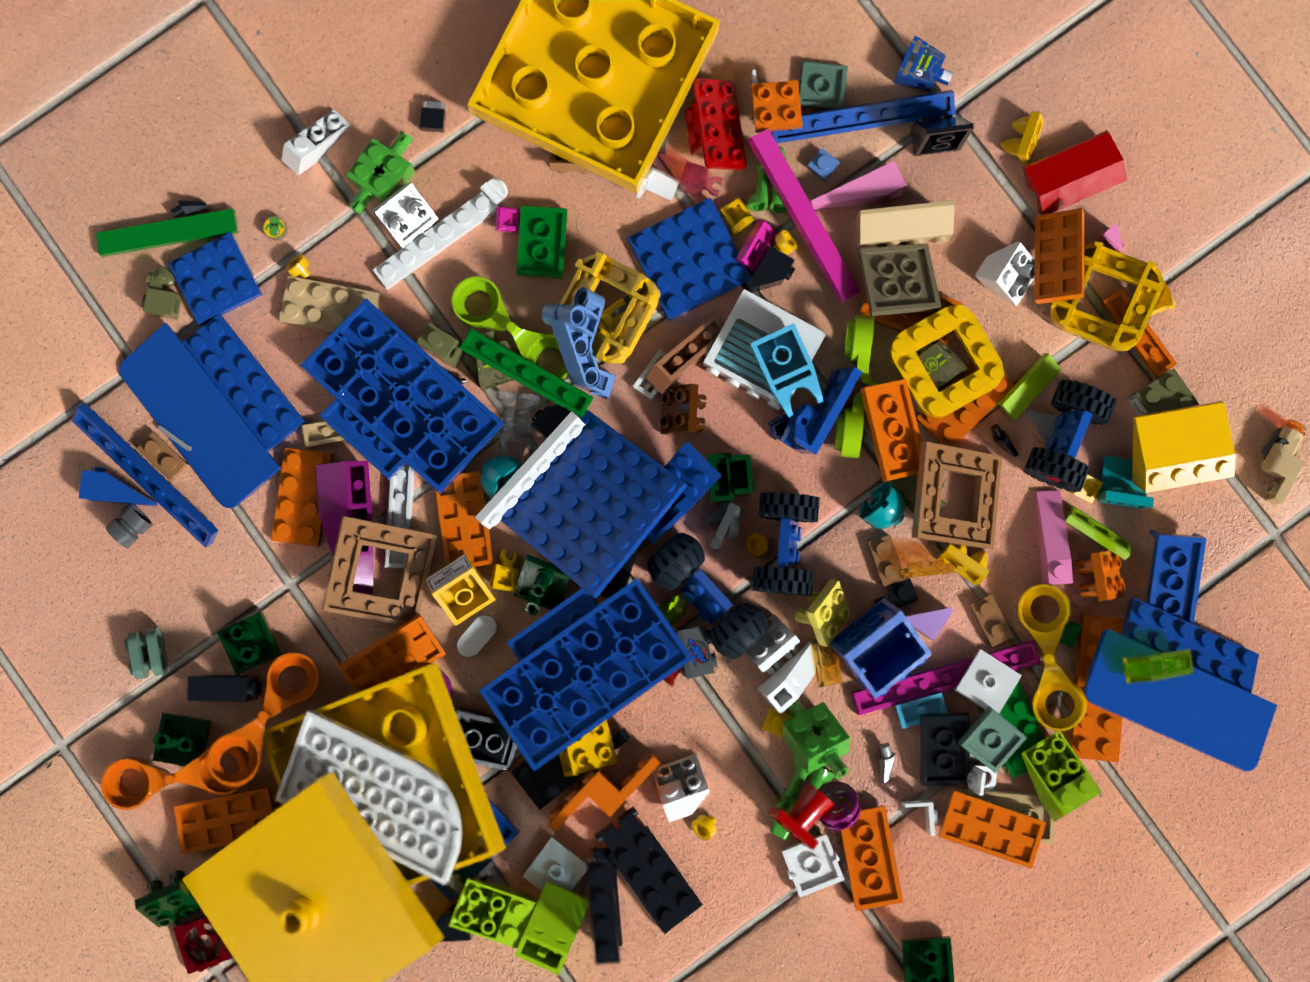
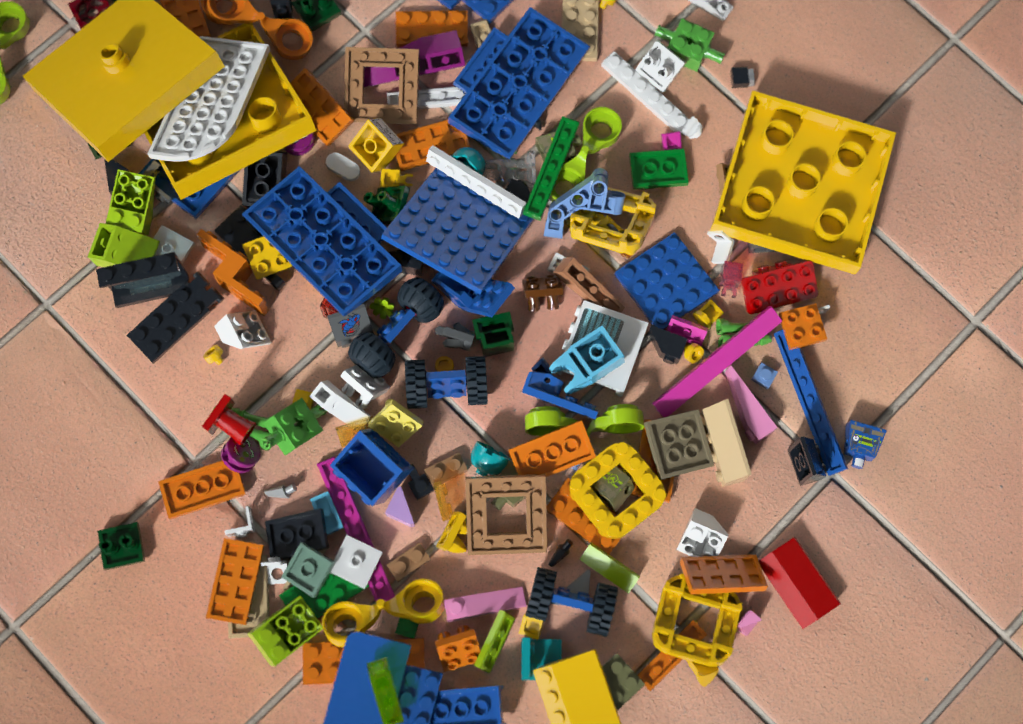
camera: 75 degrees right, 10 degrees down
(440, 345) = (564, 102): olive torso -> none
(812, 868) = (191, 443): white plate -> none
(822, 85) = (829, 366): sand green tile -> none
(1024, 146) = (826, 540): yellow tile -> none

